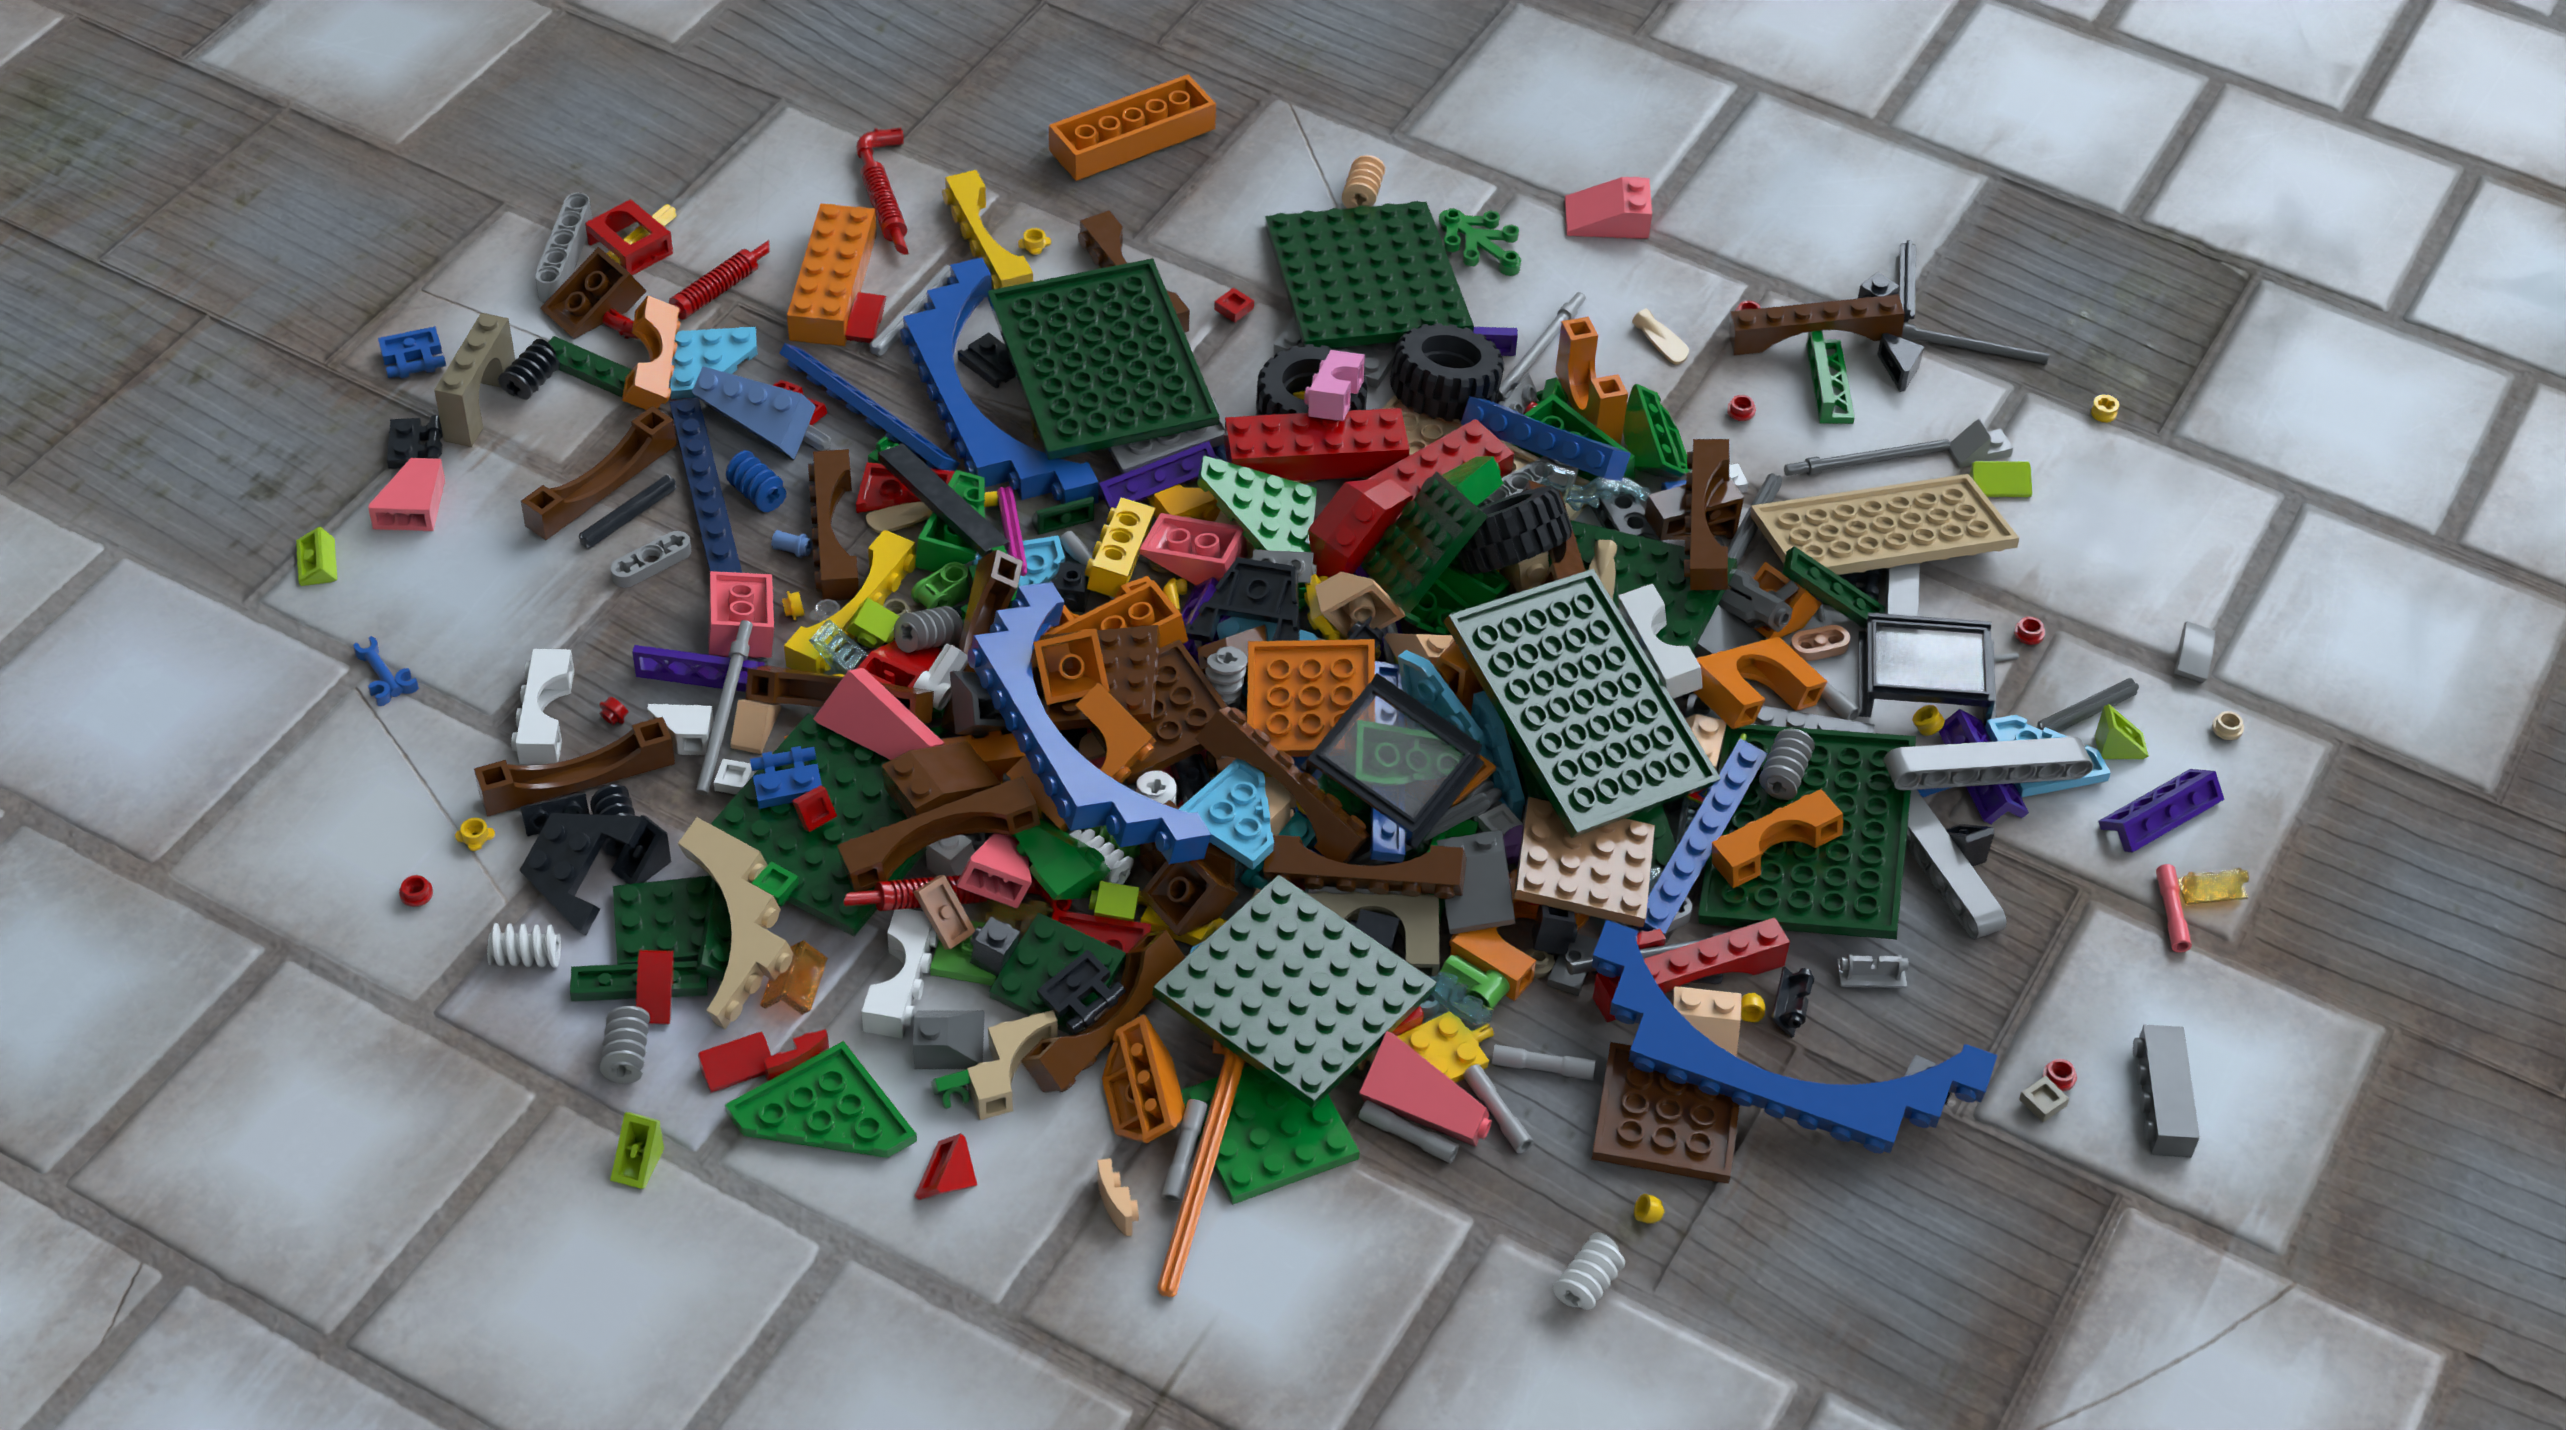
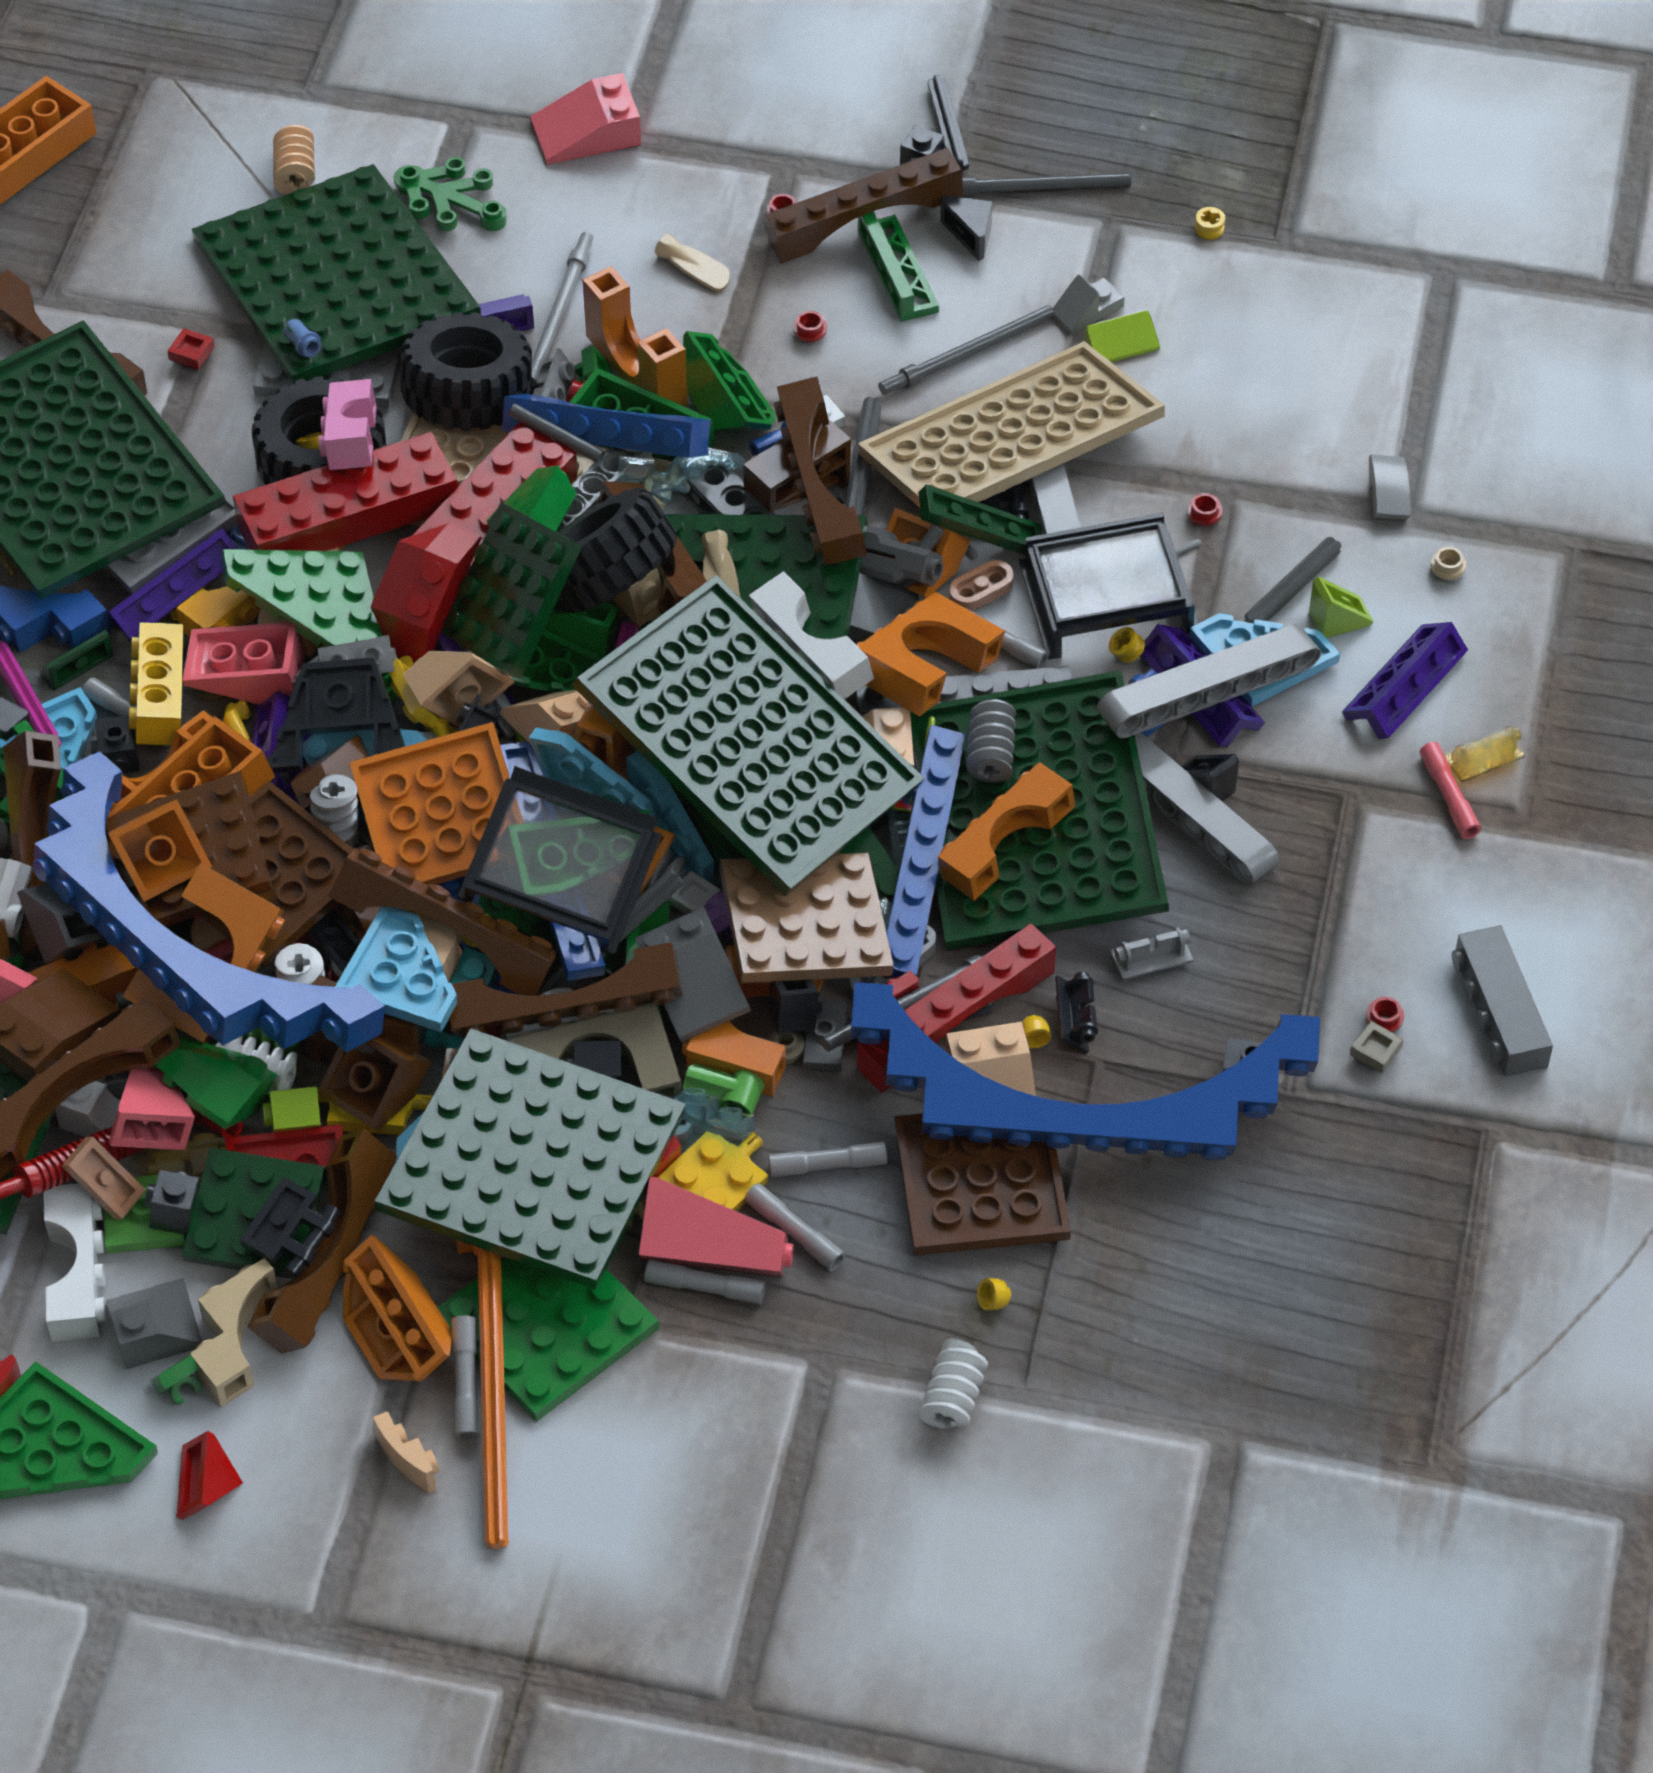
camera: 15 degrees left, 5 degrees up
(1323, 316) = (306, 342): none -> medium blue pin
(1502, 434) = (556, 433): none -> dark grey bar

